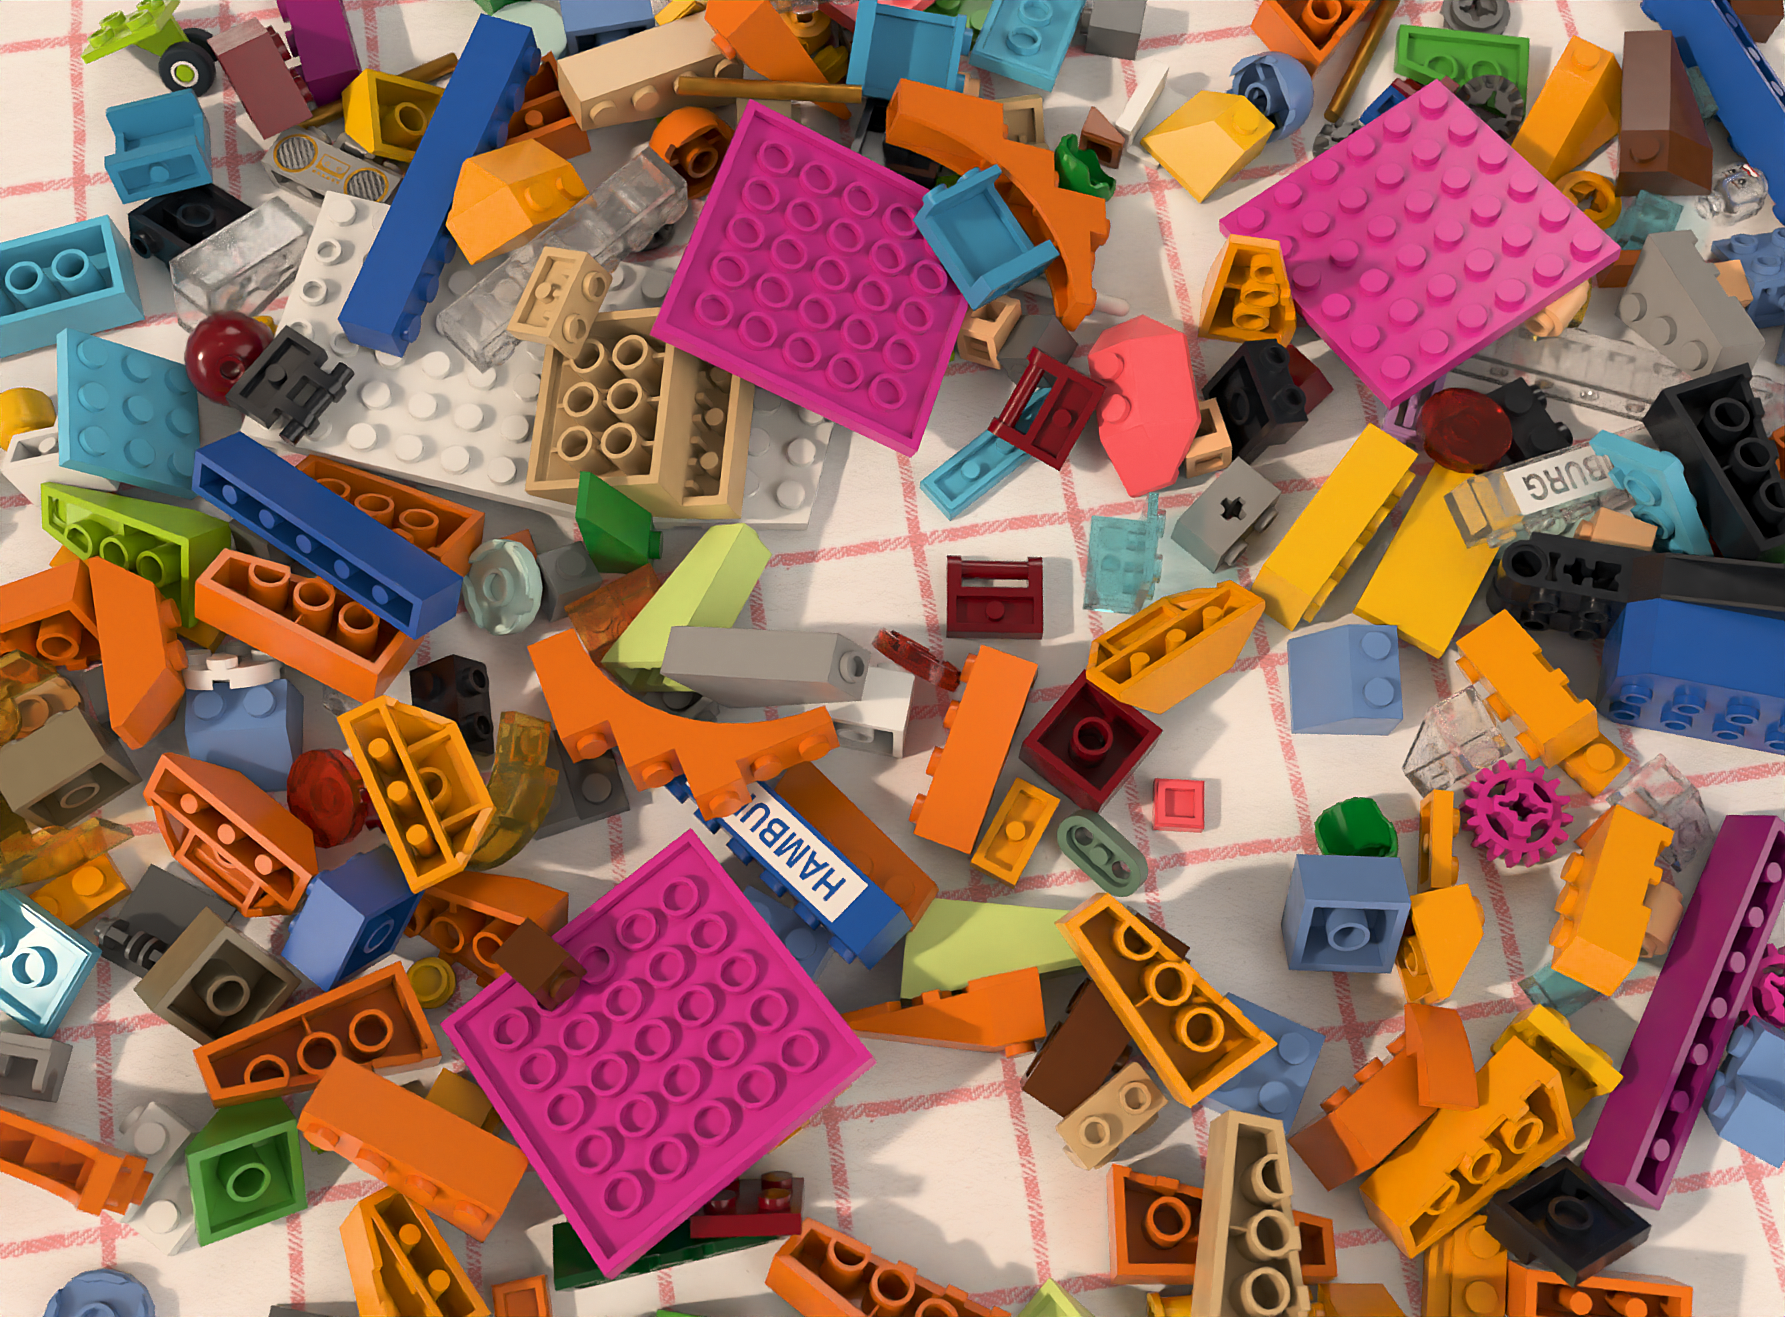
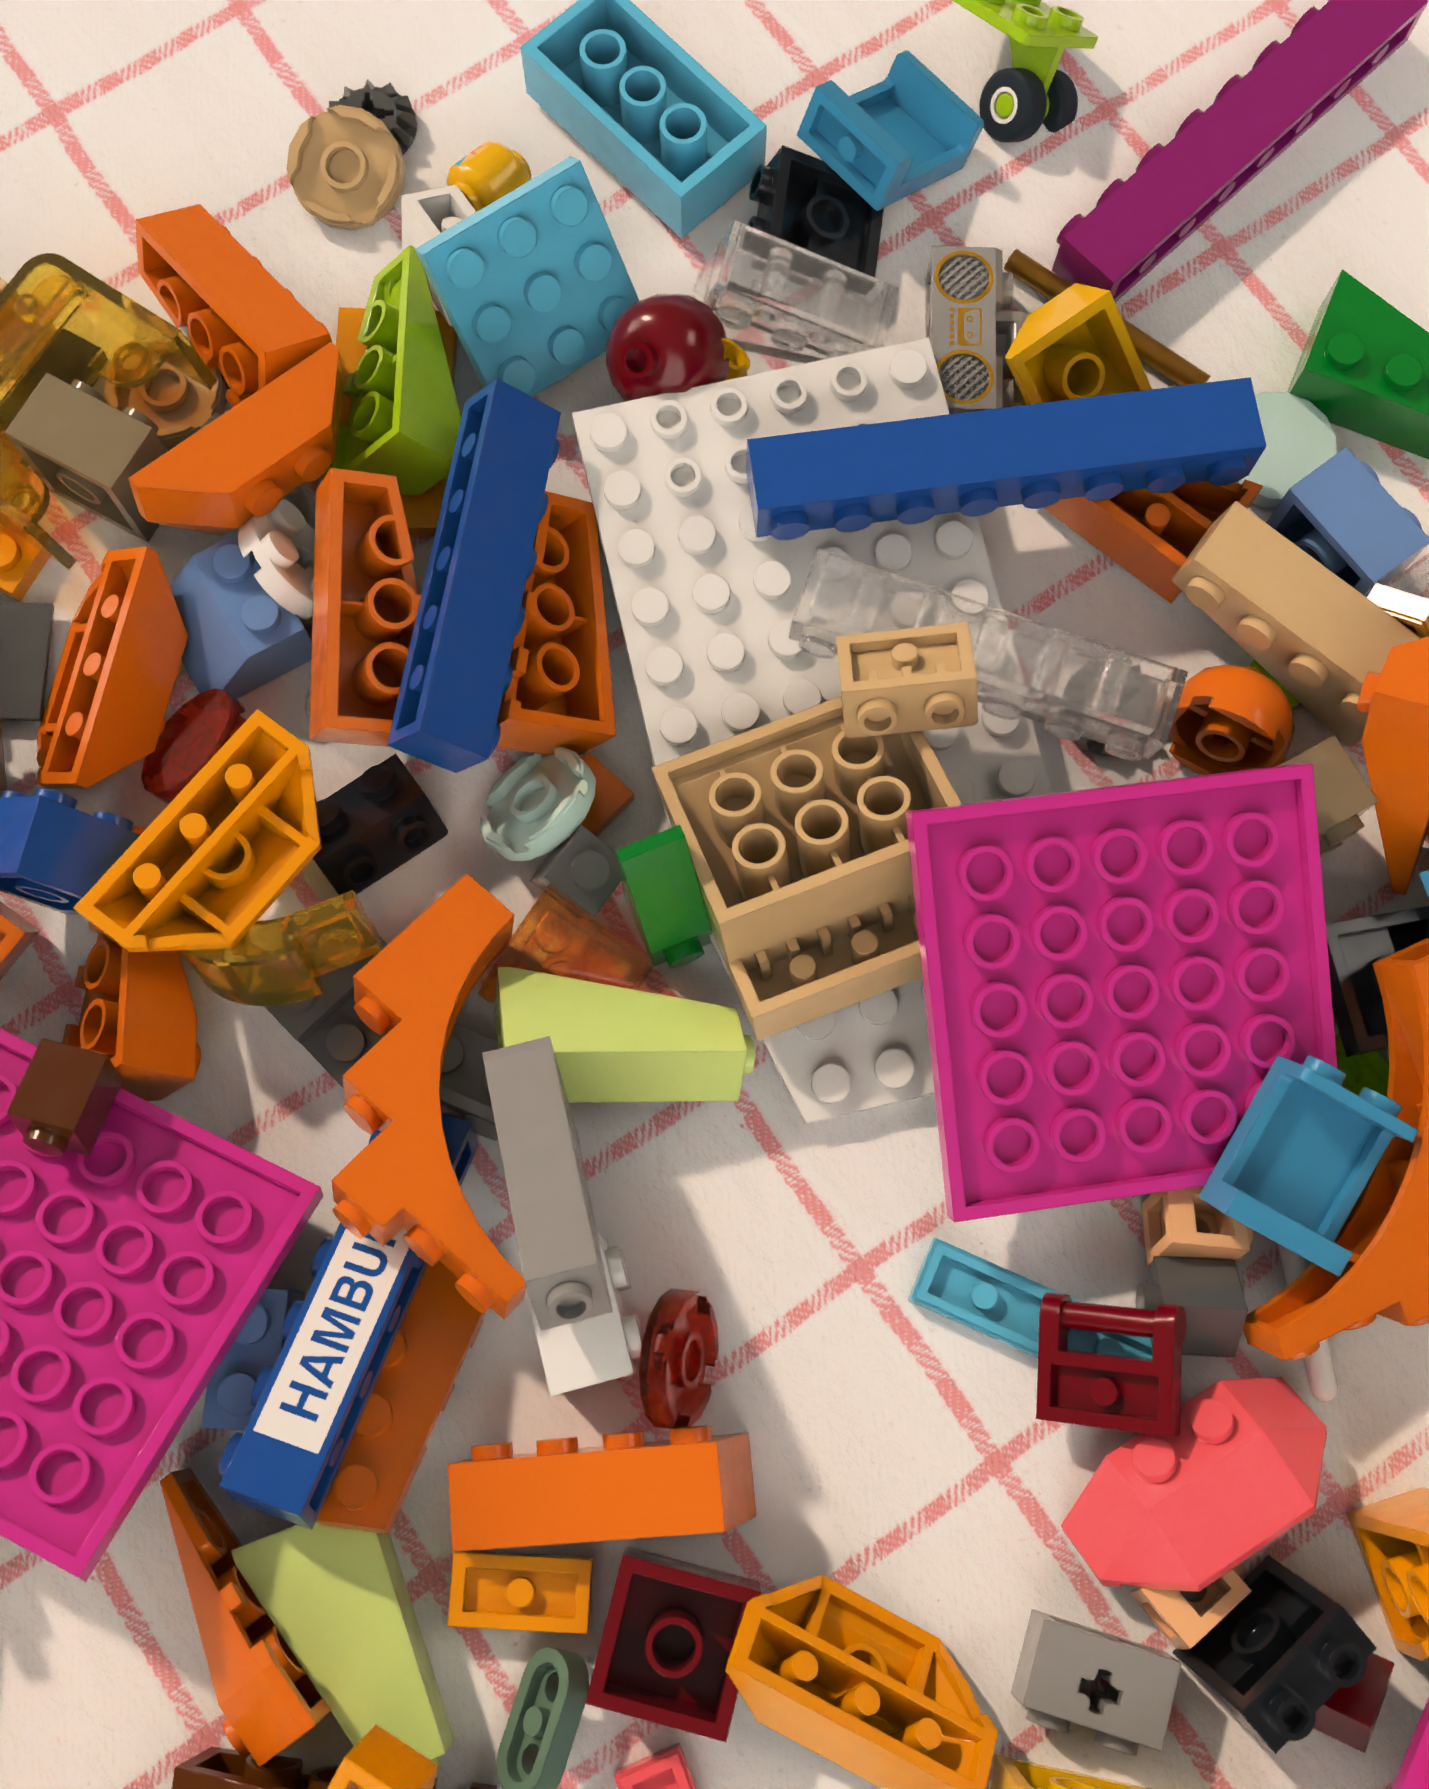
camera: 65 degrees right, 5 degrees up
(257, 71) = (1032, 184): dark red brick -> none
(279, 377) = (650, 417): black plate -> none
(432, 982) = (41, 974): yellow plate -> none
(510, 198) = (1027, 550): light orange wedge -> none
(770, 89) = (1354, 782): pearl gold bar -> none
(994, 610) = (806, 1423): dark red plate -> none
(1124, 560) = (959, 1566): clear light blue bracket -> none

